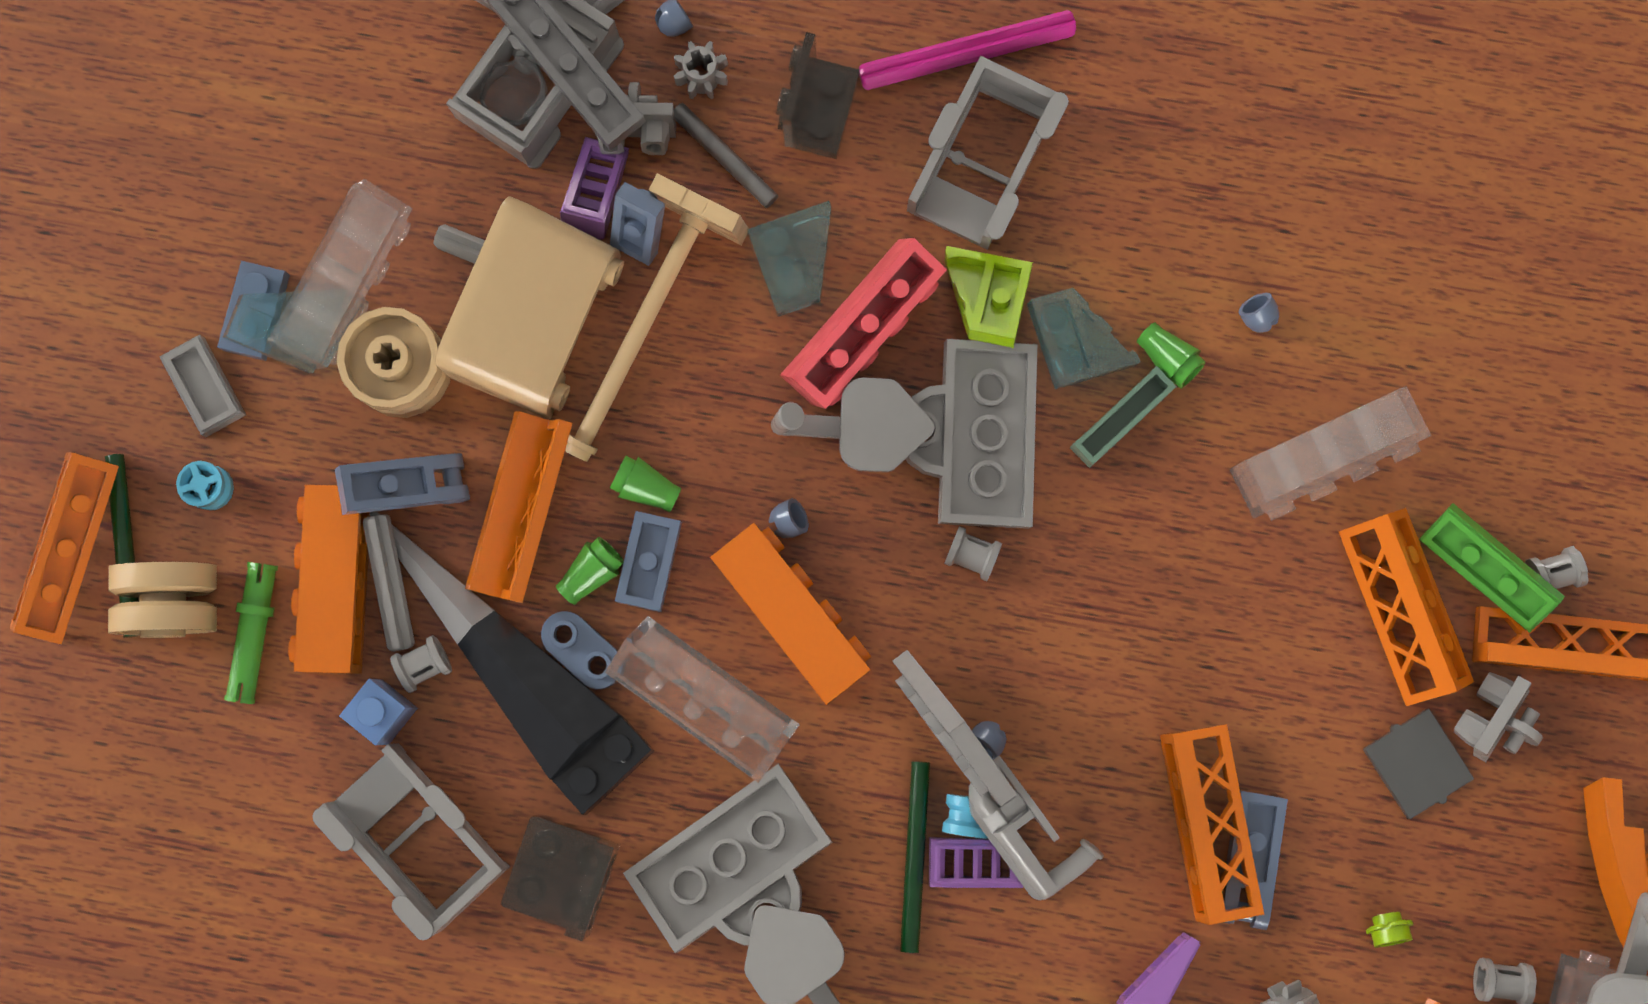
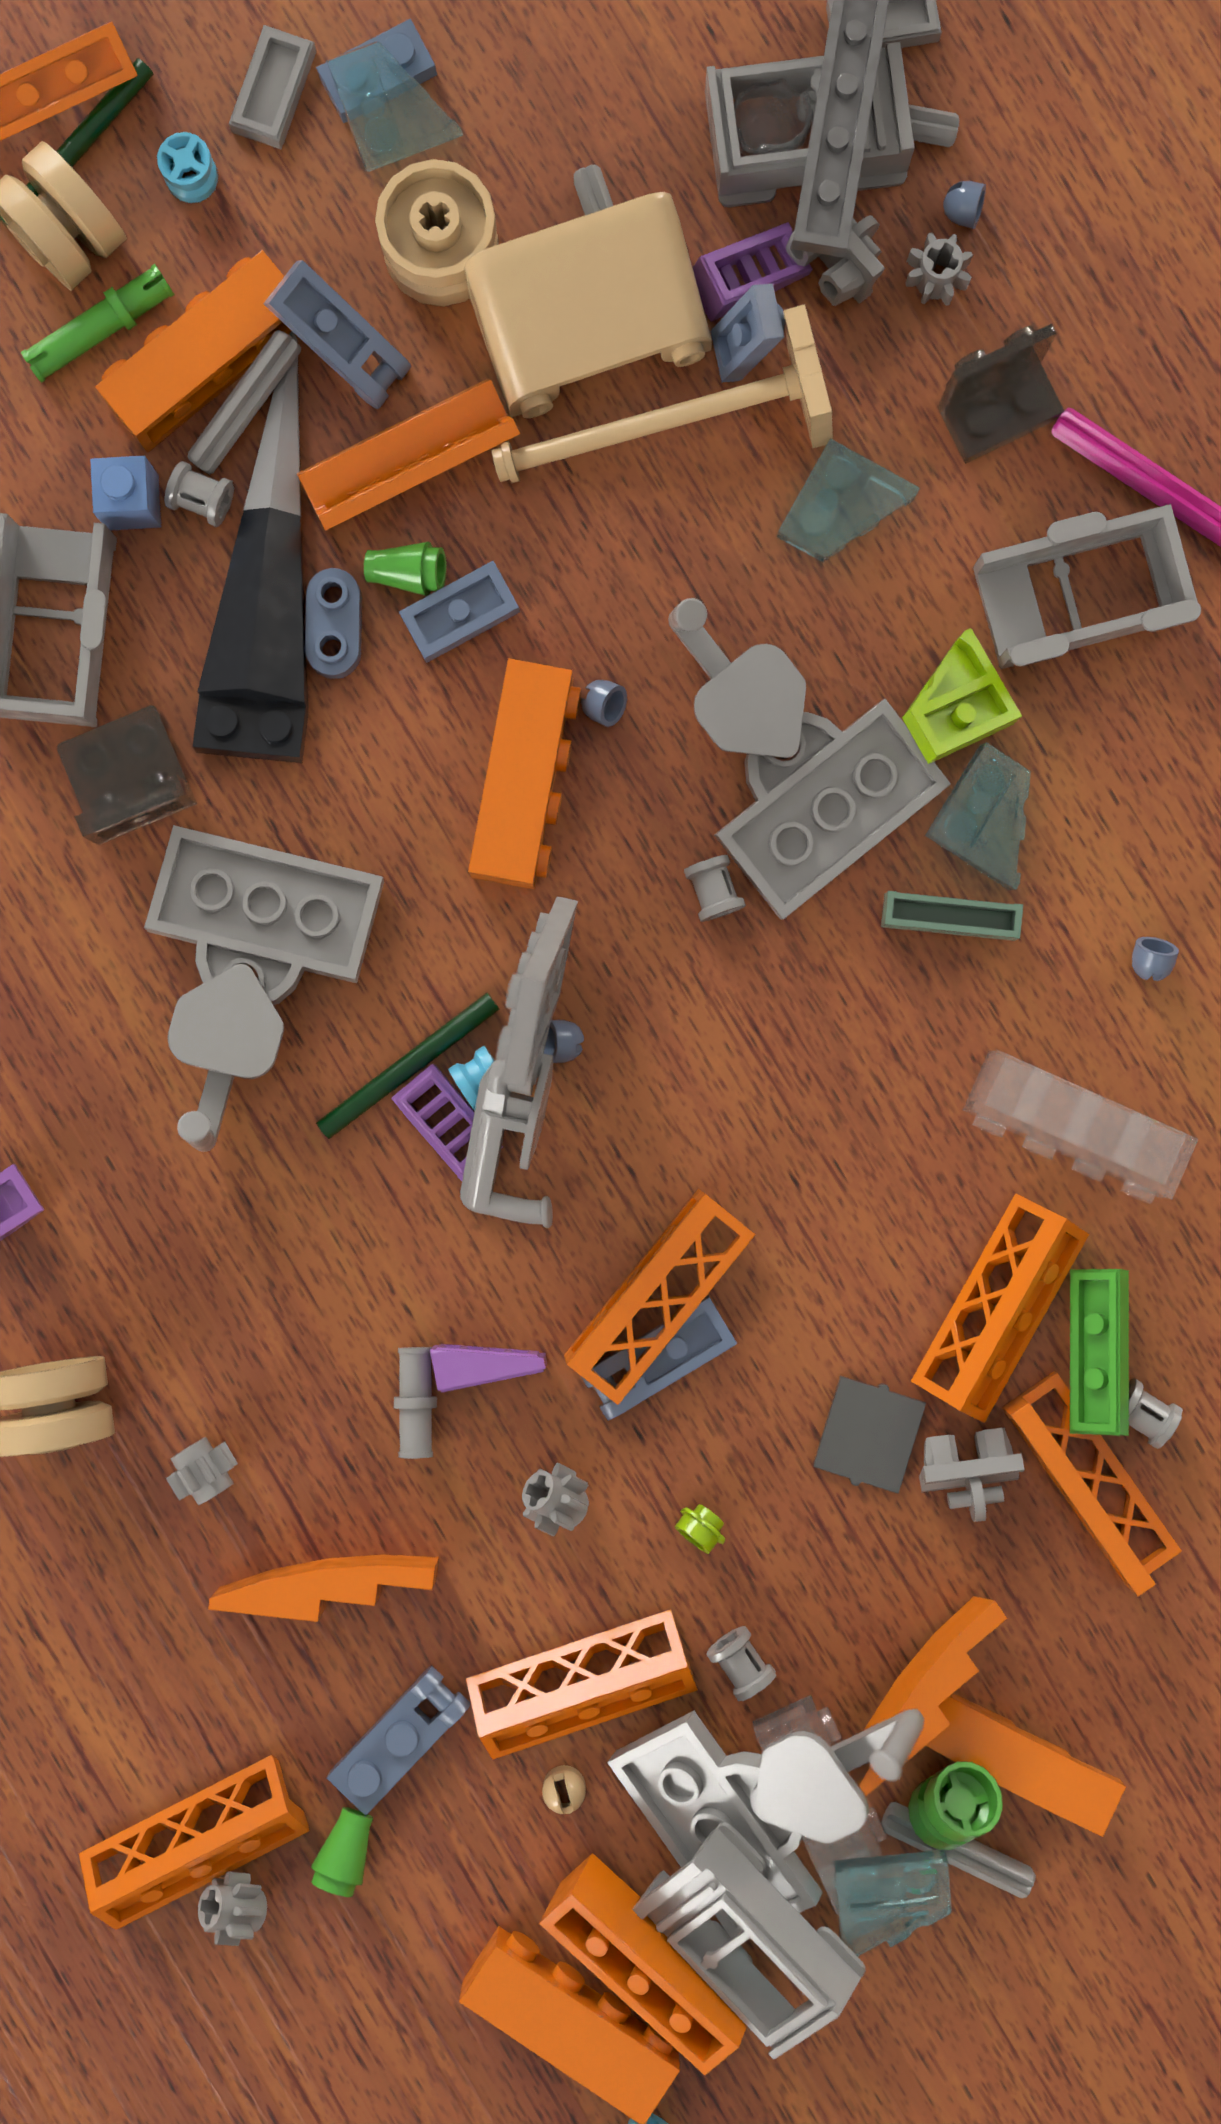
camera: 50 degrees right, 5 degrees up
(341, 275) = (474, 114): clear brick -> none
(644, 485) = (523, 548): bright green cone -> none
(702, 698) = (380, 760): clear brick -> none
(724, 155) = (880, 360): flat silver bar -> none
(864, 322) = (836, 612): coral brick -> none
(1171, 355) = (1046, 911): bright green cone -> none

